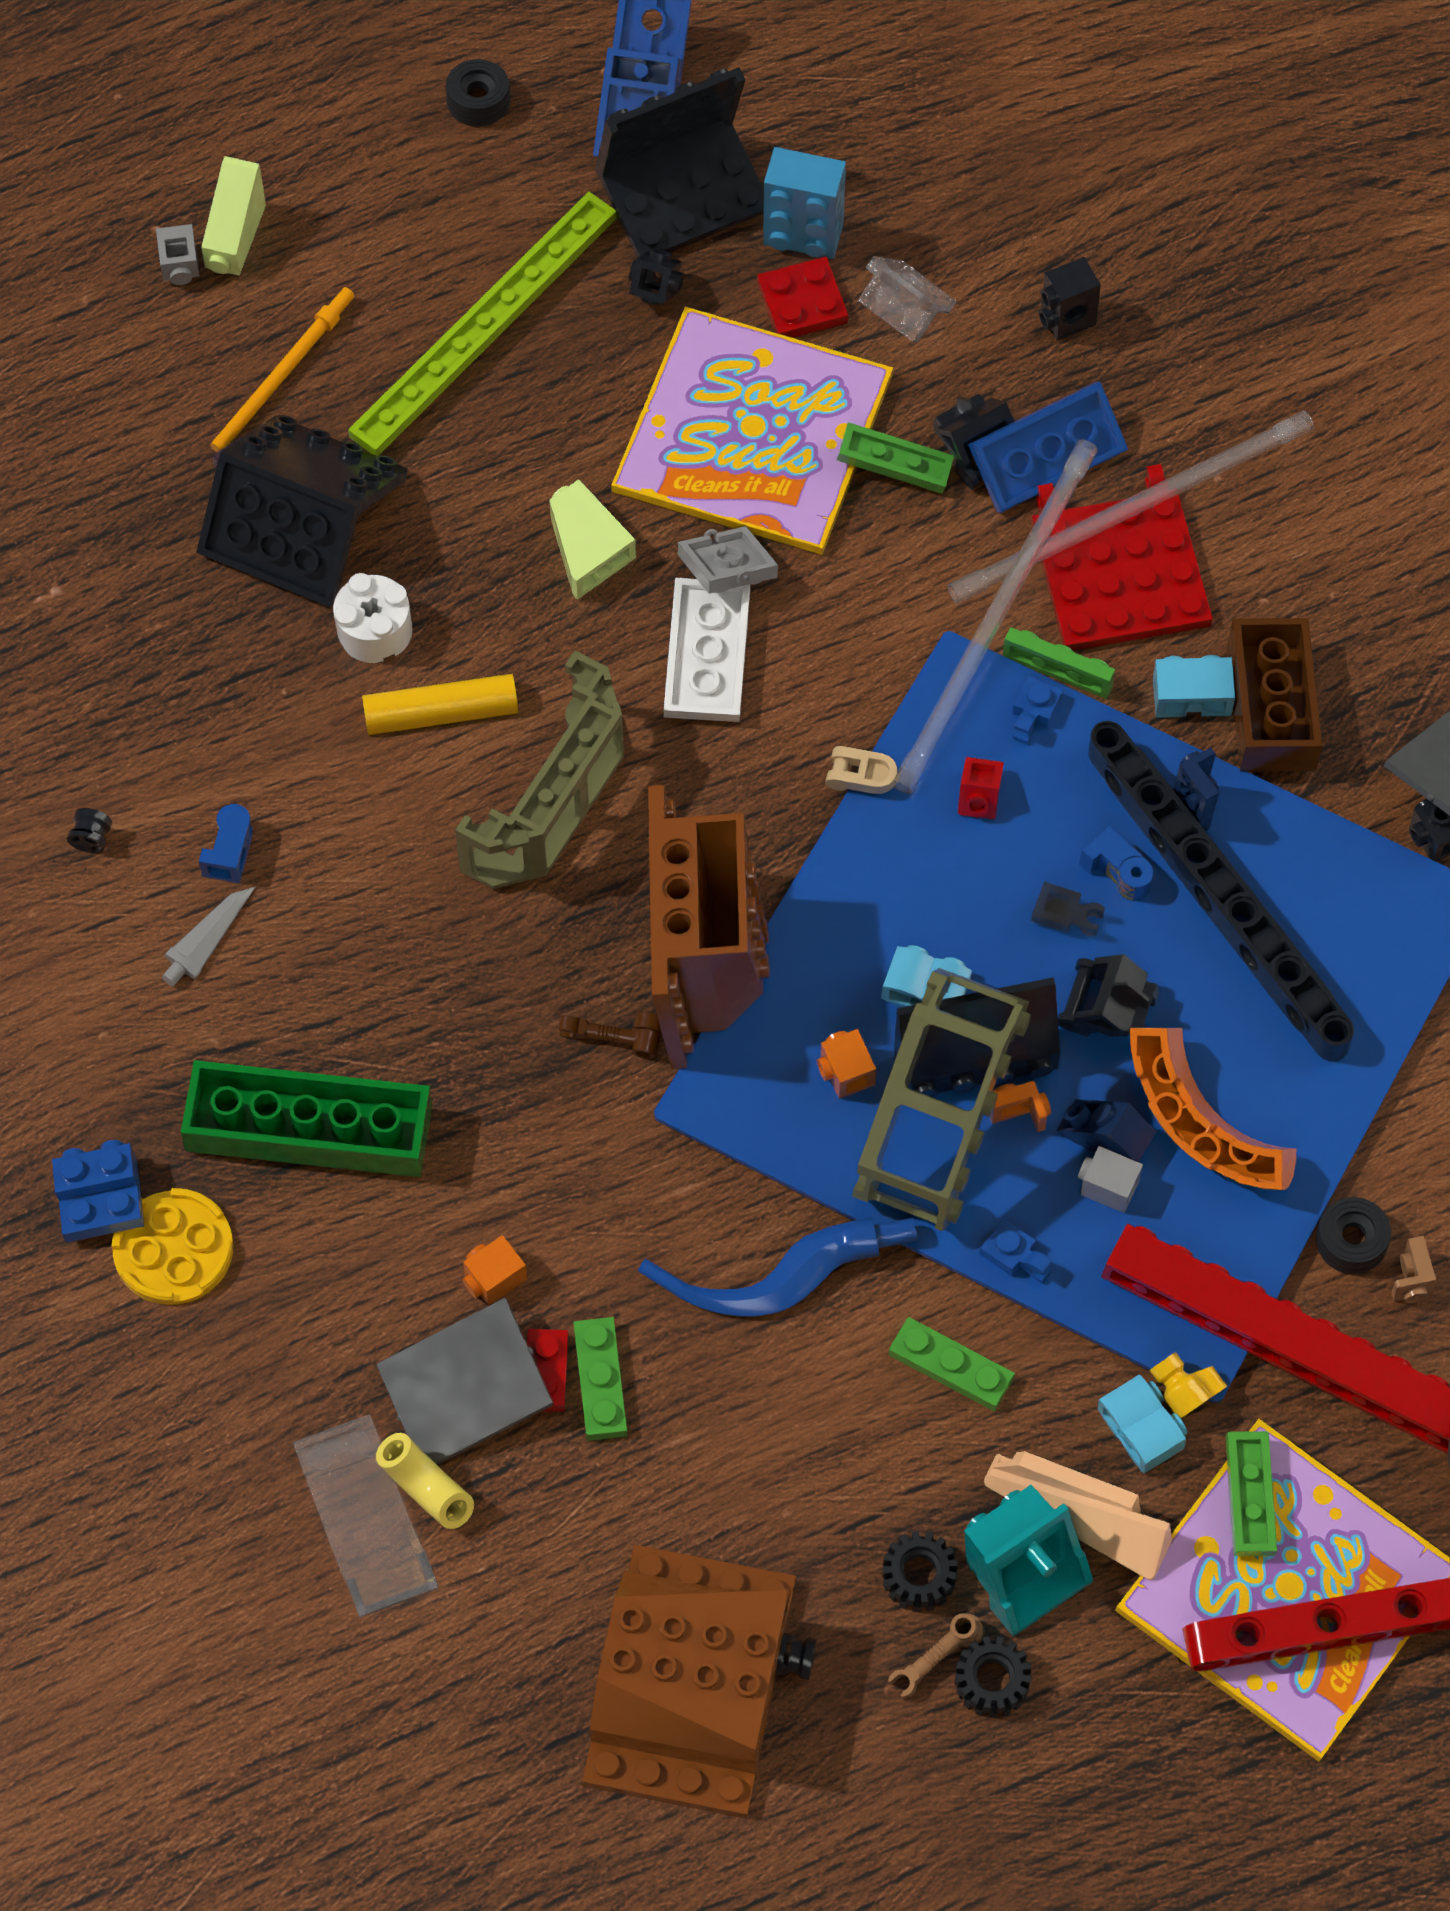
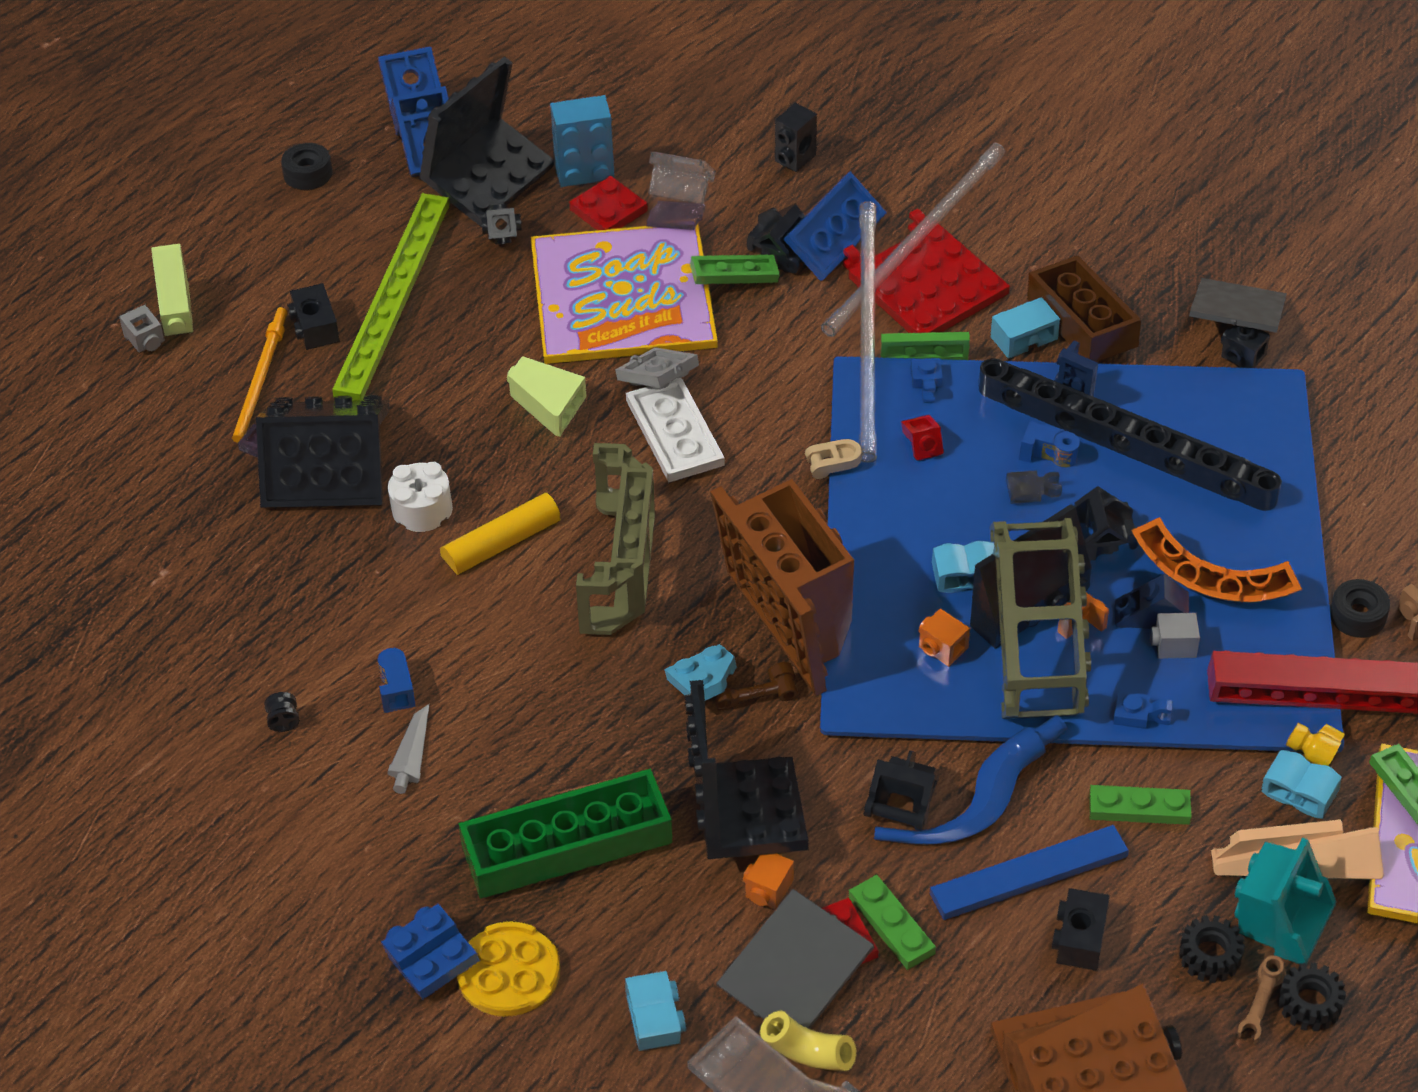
camera: 25 degrees left, 15 degrees down
(291, 1367) = (653, 1010): none -> medium azure brick
(379, 335) = (314, 316): none -> black brick
(506, 1165) = (743, 803): none -> black bracket
(562, 986) = (711, 666): none -> medium azure plate
(705, 1219) = (906, 779): none -> black piece
(781, 1388) = (1028, 872): none -> blue tile
(787, 1506) = (1077, 946): none -> black brick
(872, 347) = (676, 215): none -> piece

